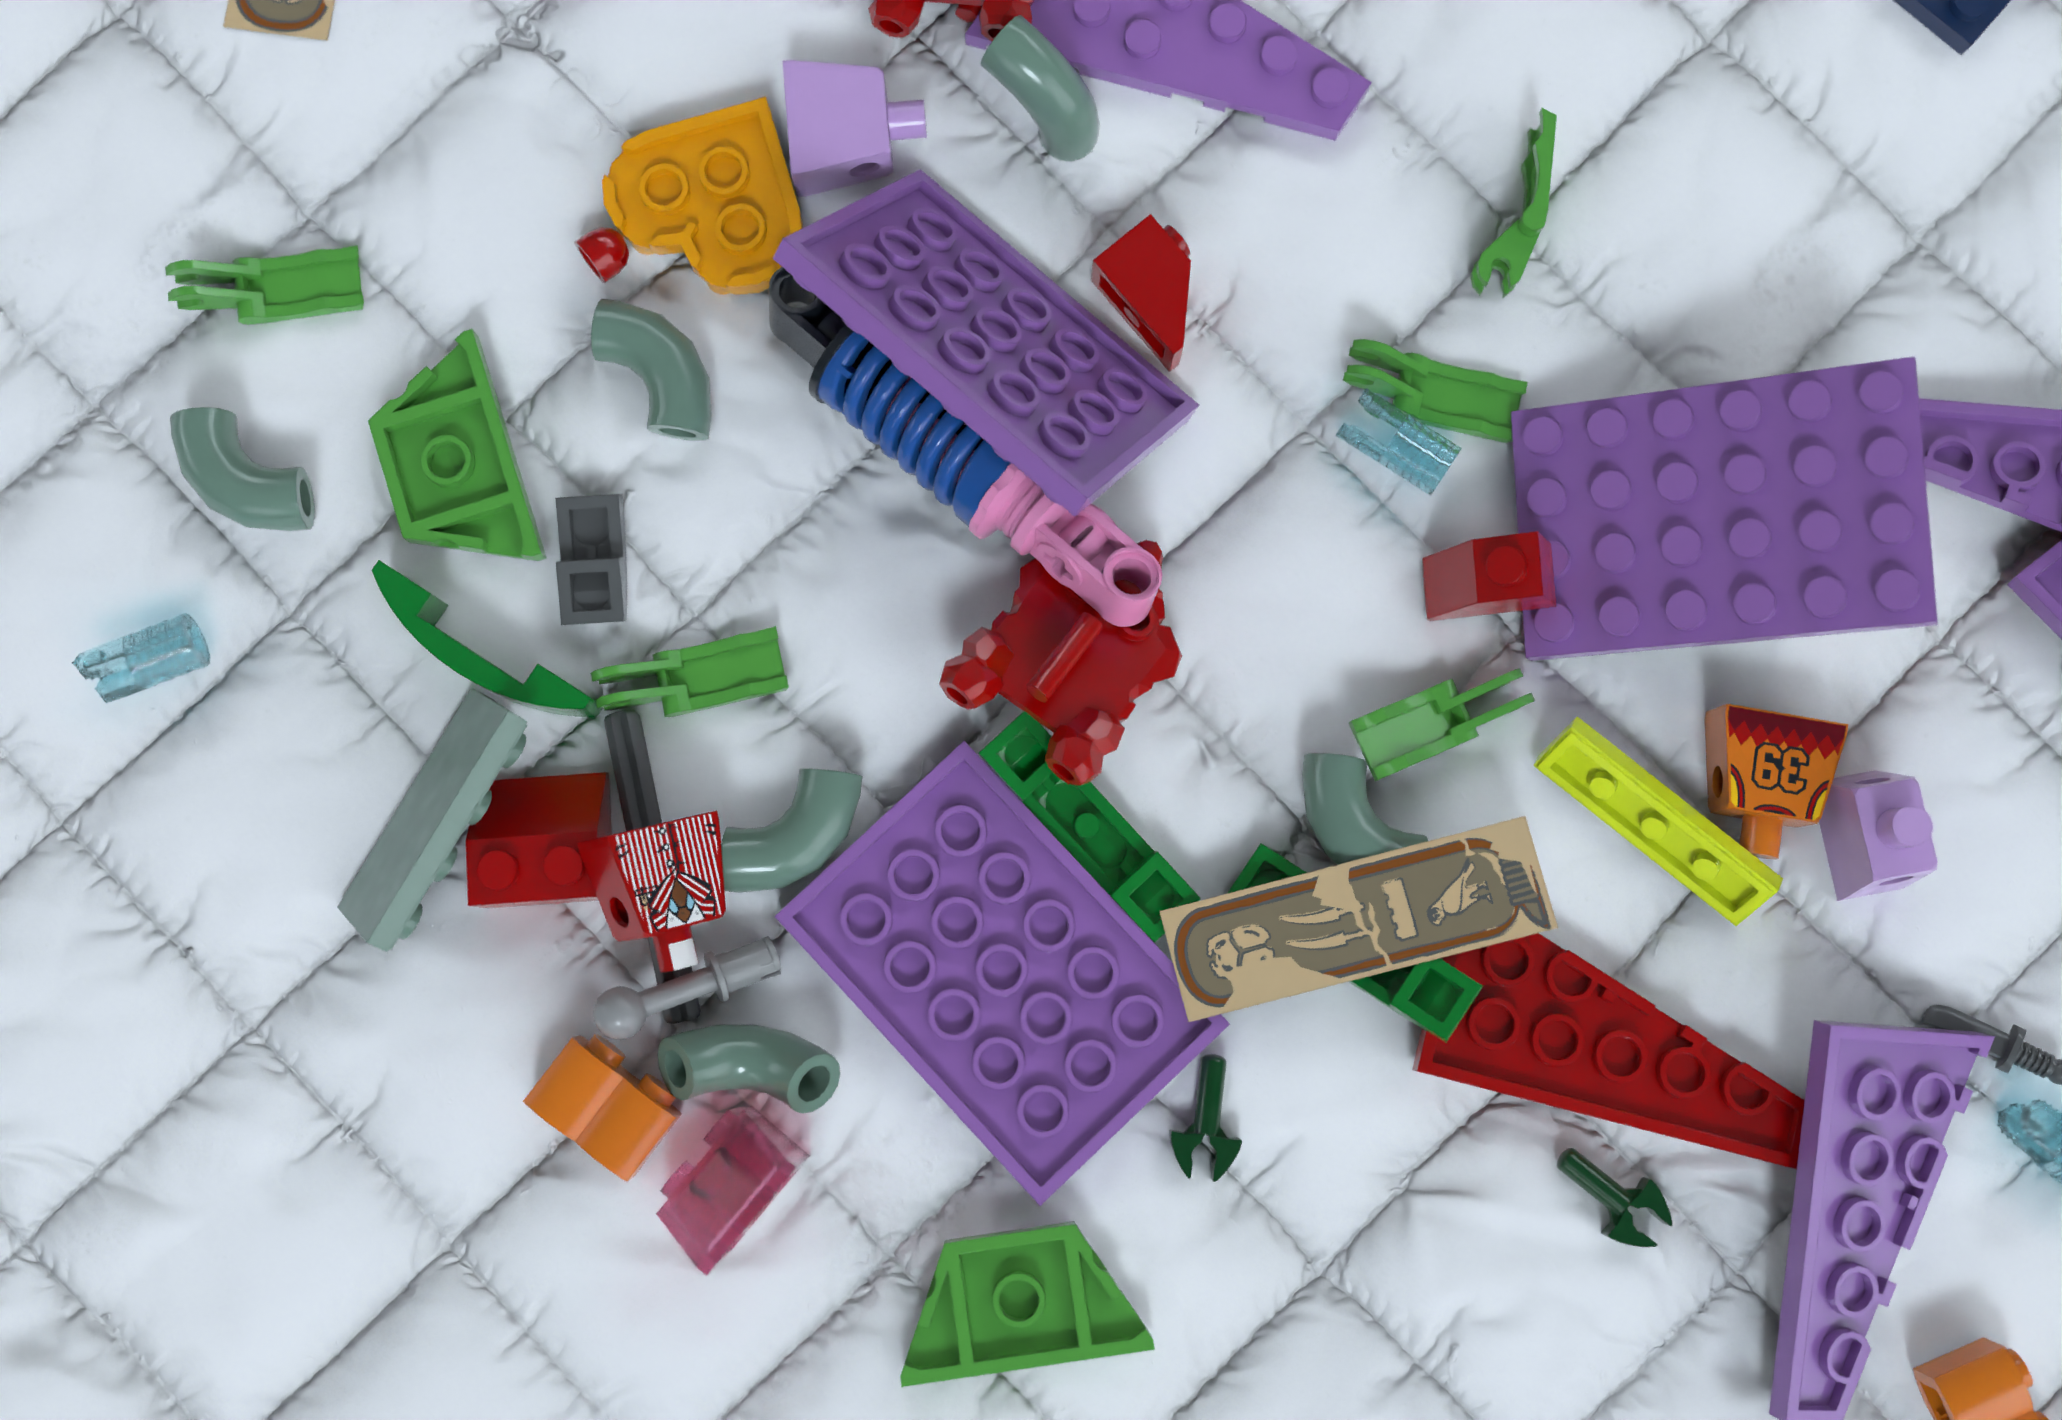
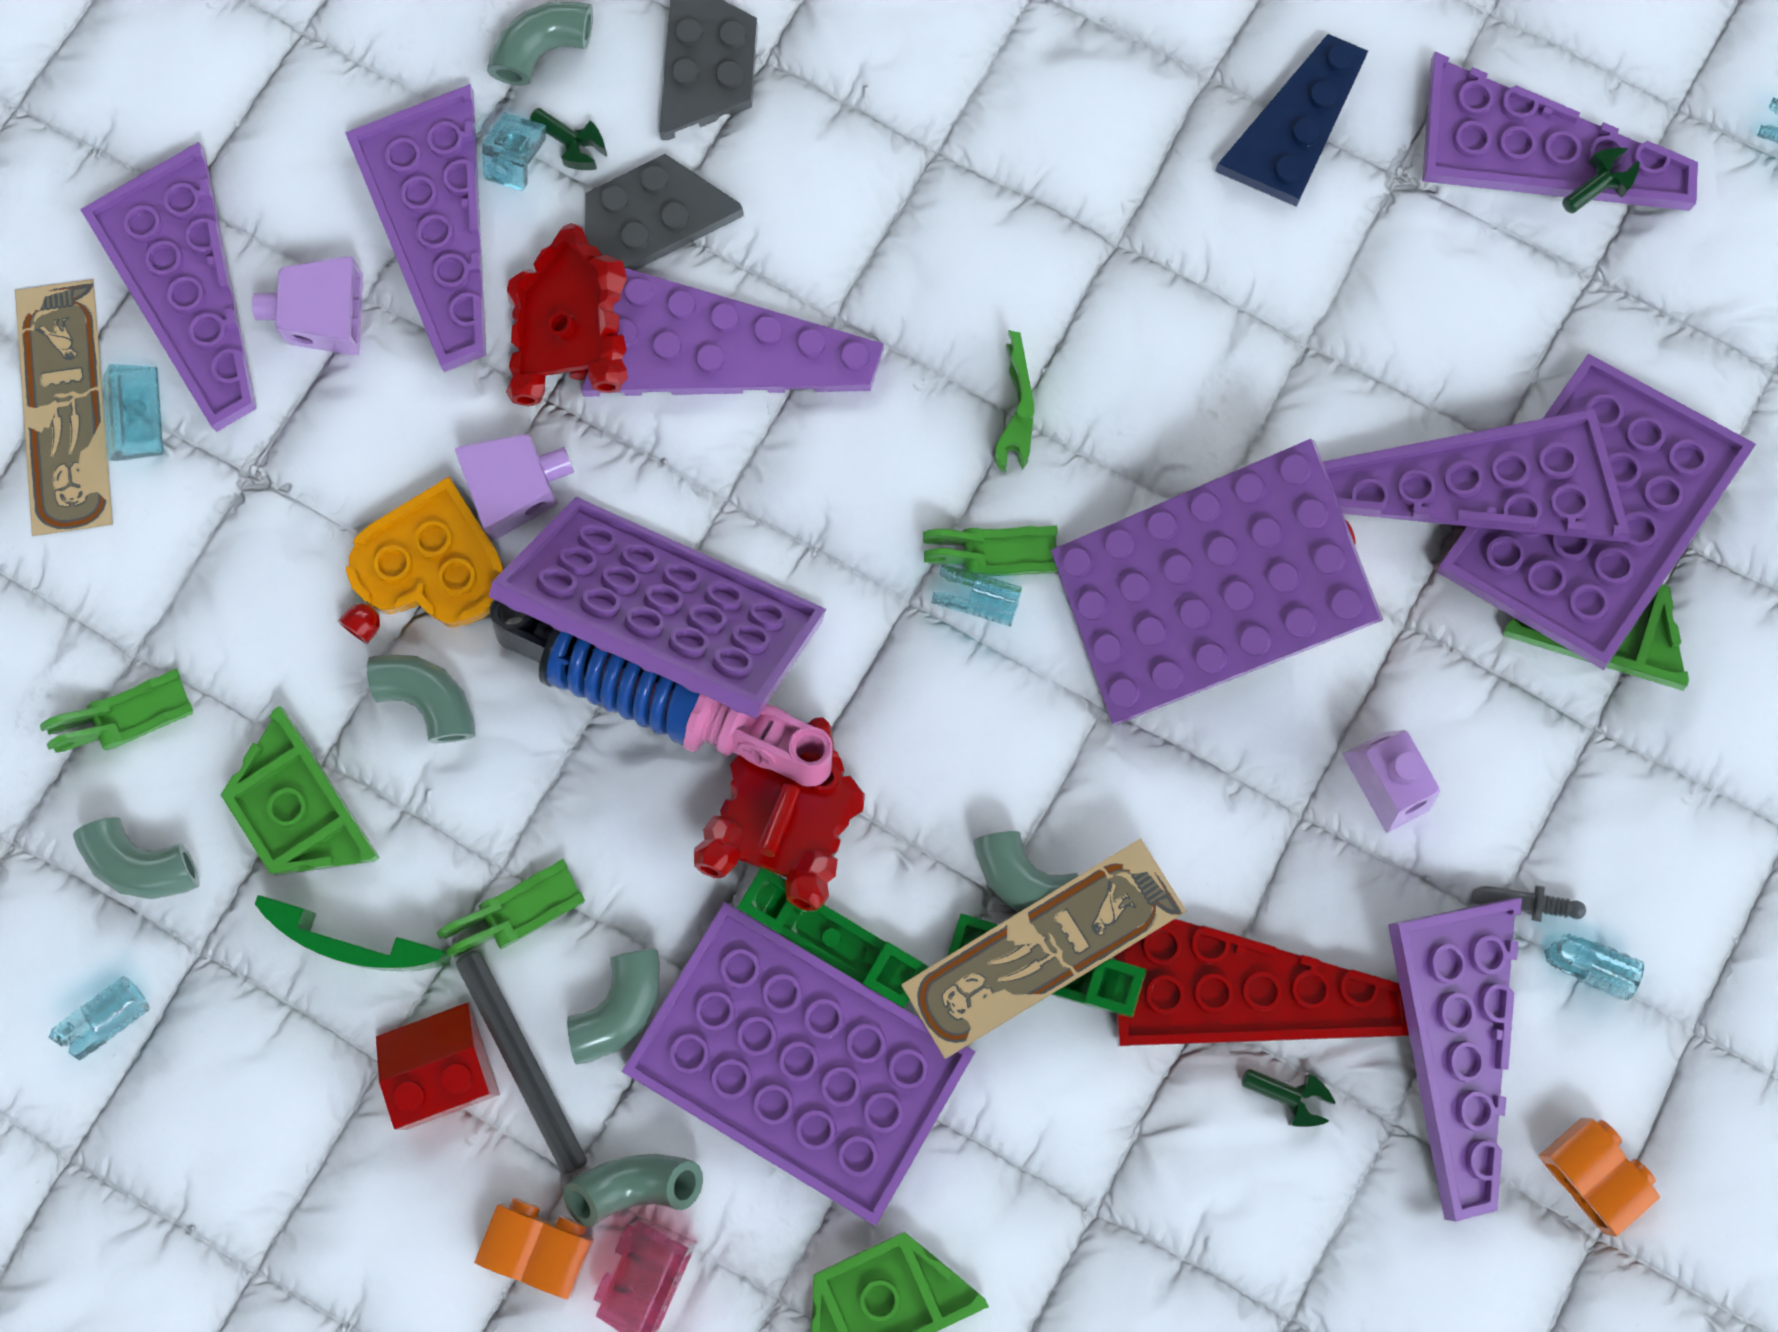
camera: 15 degrees left, 5 degrees down
(430, 820) = (348, 1074): sand green tile -> none
(592, 559) = (414, 848): dark grey slope -> none
(623, 1011) = (530, 1173): light grey pin -> none
(660, 883) = (530, 1071): red torso -> none
(1046, 88) = (650, 416): sand green cylinder -> none
(1148, 285) = (764, 533): red slope -> none
(1207, 1122) = (980, 1128): dark green bar -> none
(1426, 724) = (1055, 792): bright green arm -> none
(1490, 577) = (1069, 673): red slope -> none
(1658, 822) = (1239, 814): neon yellow tile -> none
(1769, 771) = (1308, 755): torso -> none

